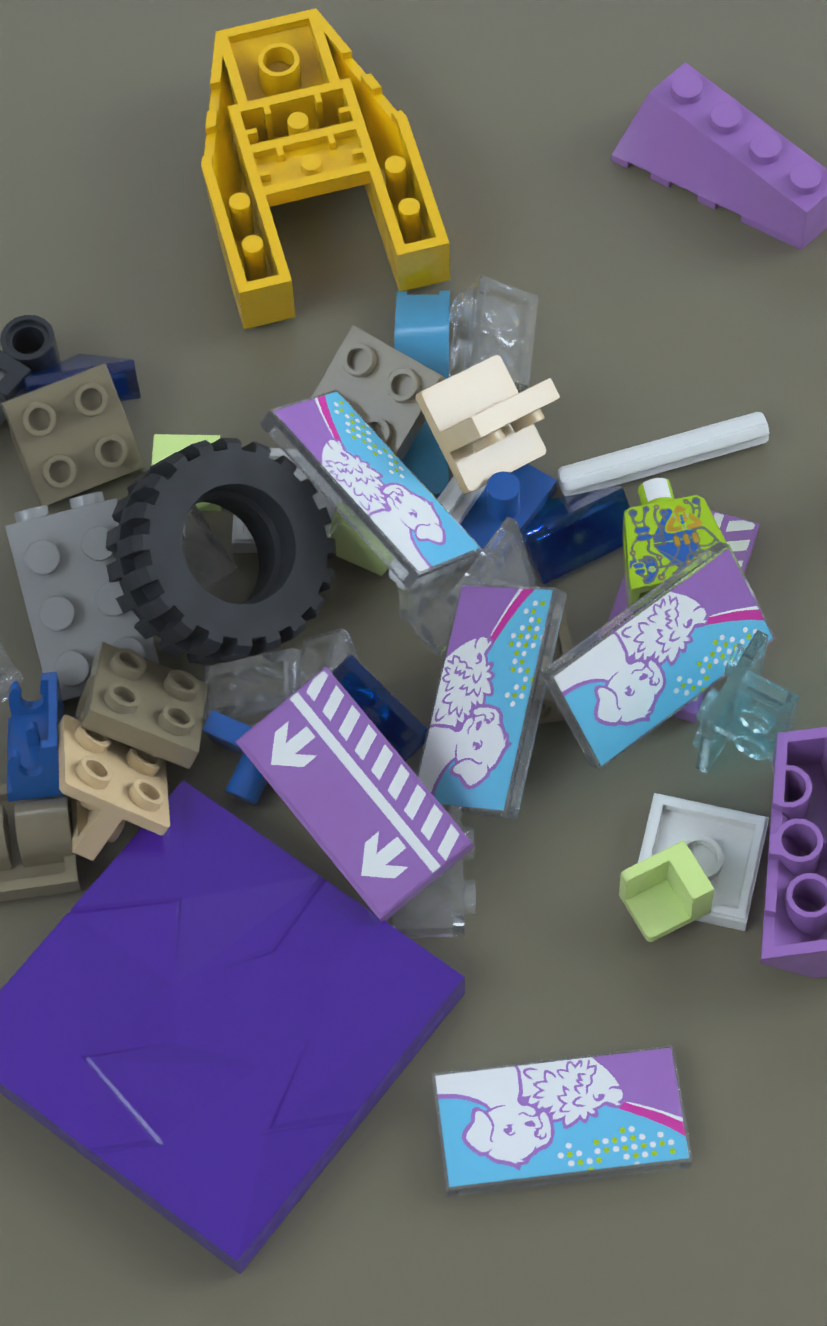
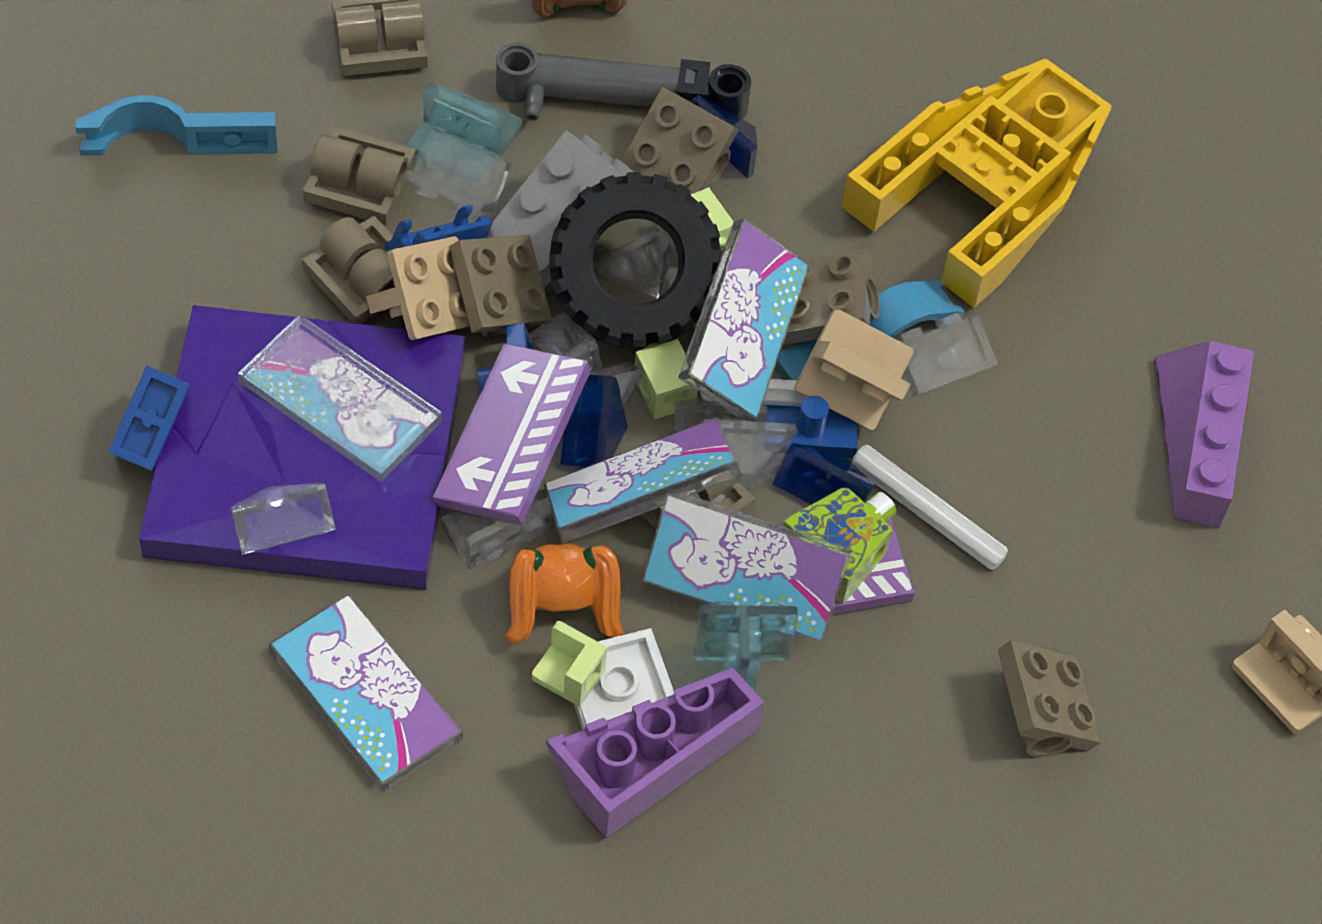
camera: 50 degrees right, 5 degrees down
(86, 1168) = (149, 418): none -> blue hinge
(186, 949) = (340, 397): none -> clear tile
(308, 1086) = (282, 516): none -> clear slope
(363, 607) = (660, 382): none -> yellowish green brick
(556, 845) = (564, 580): none -> orange hair

